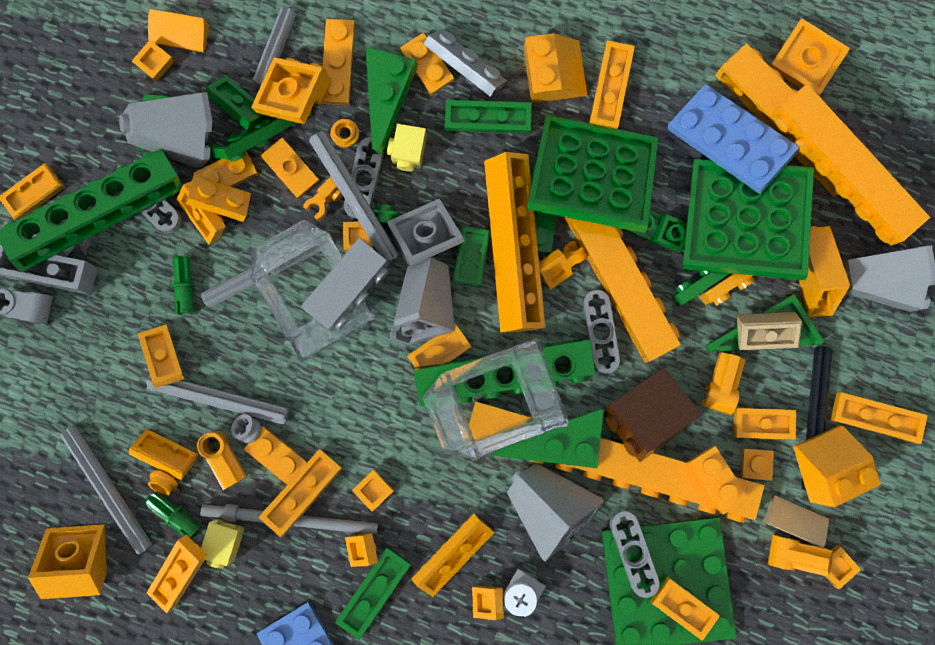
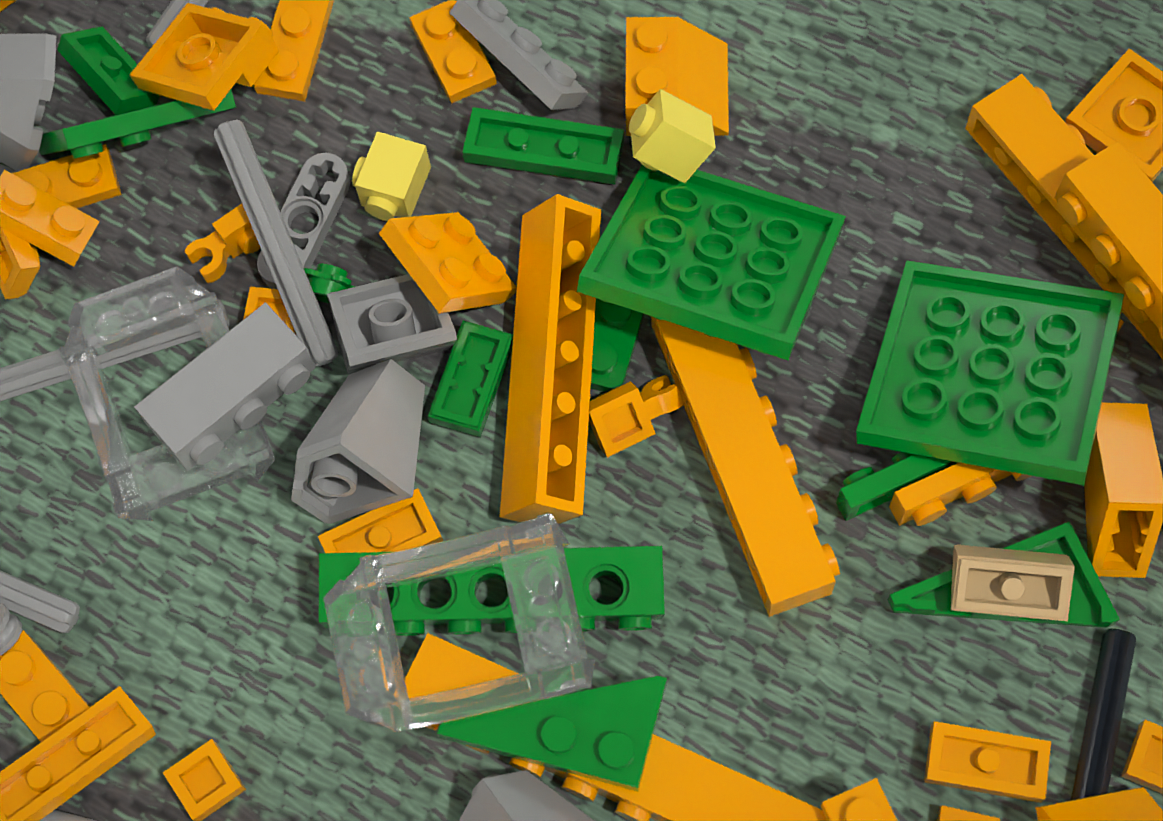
camera: 10 degrees right, 15 degrees down
(290, 168) = (178, 189): light orange plate -> none
(343, 124) = (284, 129): light orange plate -> none
(388, 84) = (374, 75): green wing -> none
(449, 194) = (448, 261): none -> light orange plate
(561, 106) = (671, 136): none -> light yellow brick
(590, 311) = (676, 506): light grey beam -> none
(612, 84) = (773, 119): light orange plate -> none
(651, 415) = (760, 705): reddish brown brick -> none
(664, 231) = (825, 376): green slope -> none
(723, 387) = (911, 684): light orange piece -> none
(733, 138) = (982, 232): medium blue plate -> none

